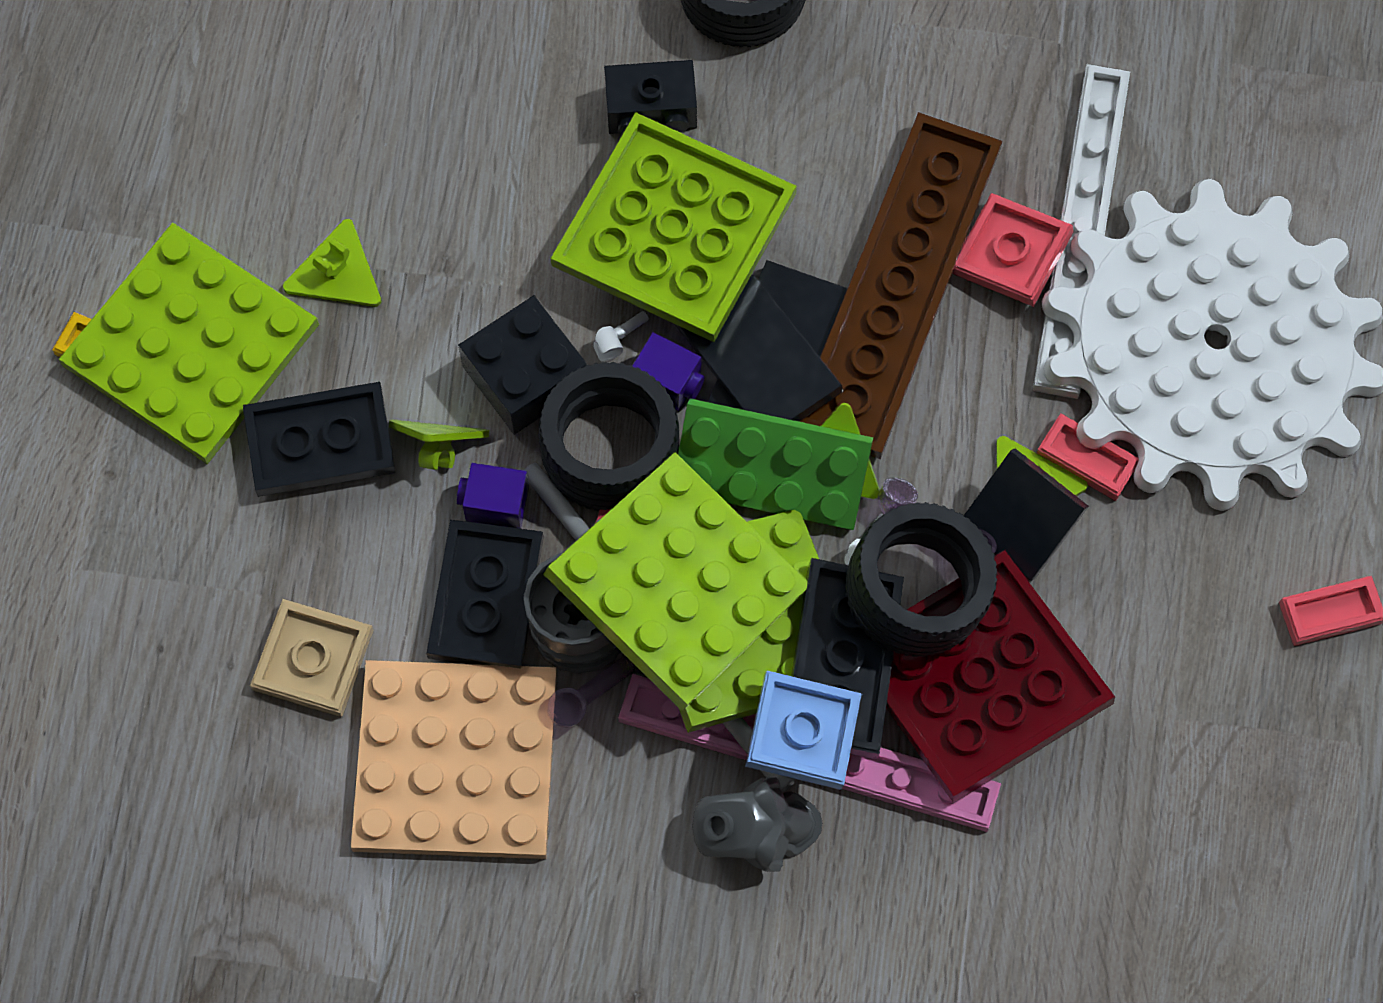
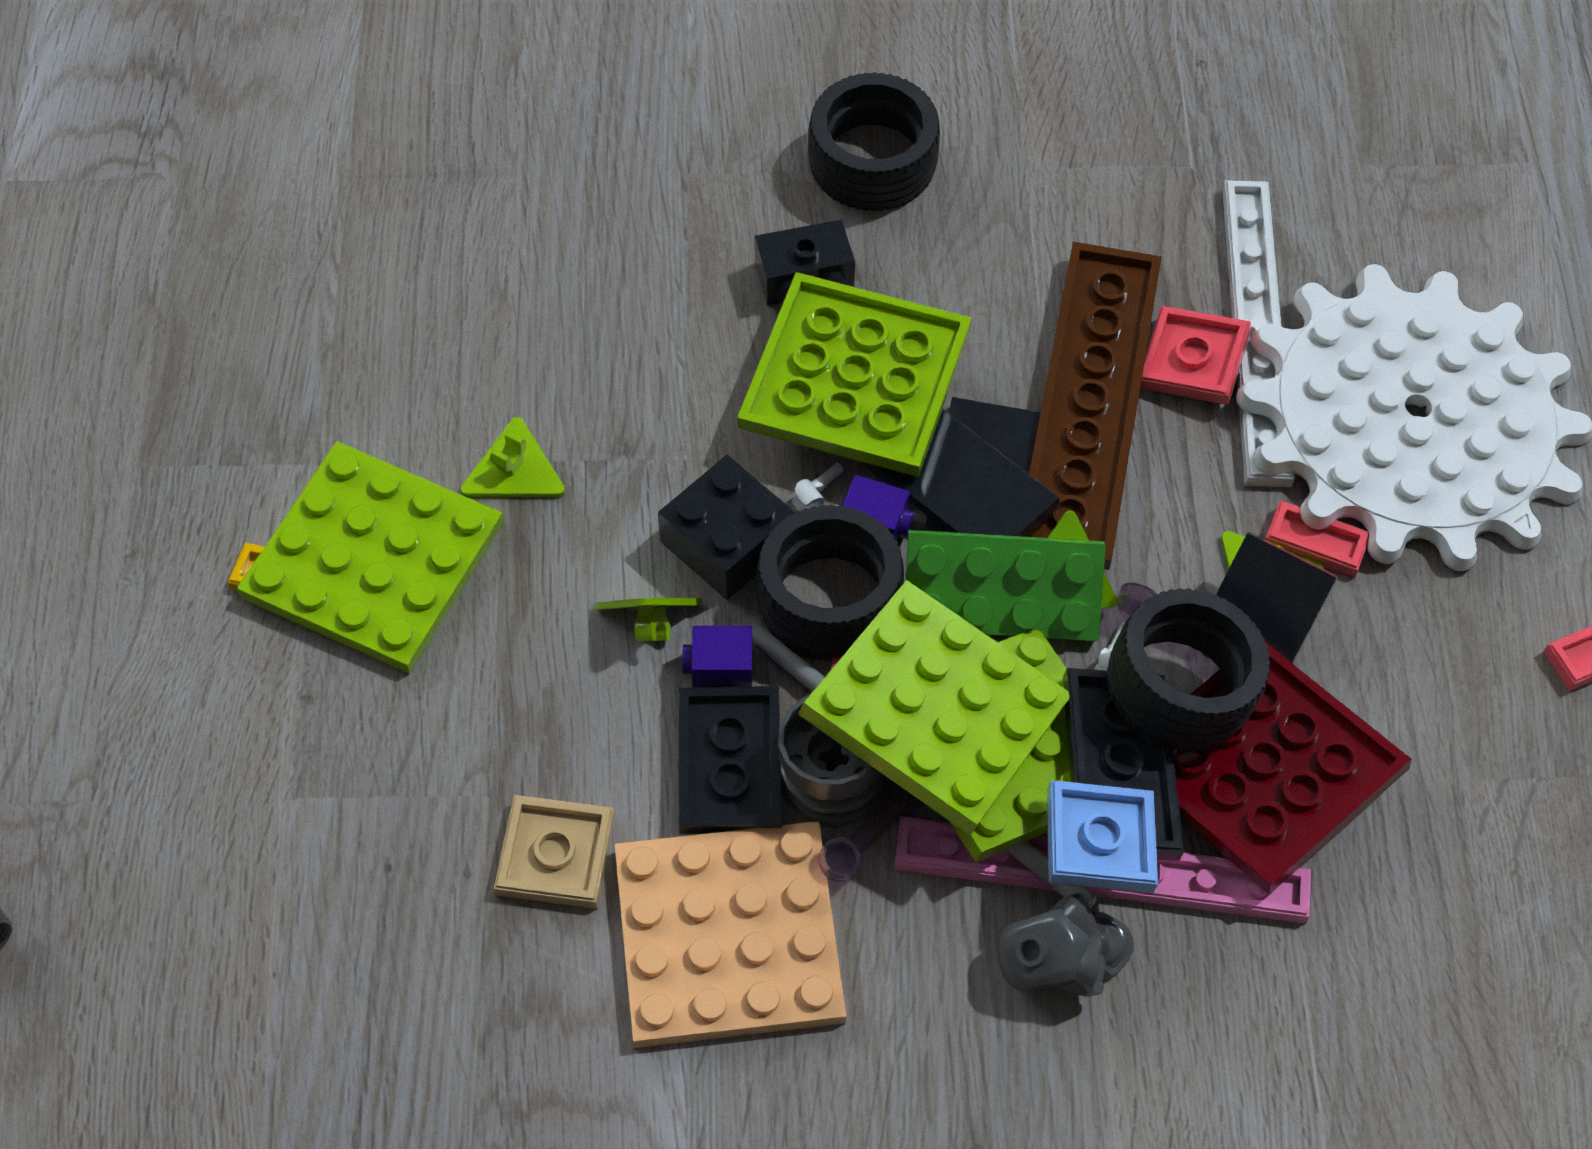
camera: 10 degrees left, 10 degrees down
(318, 439) = (525, 630): black plate -> none

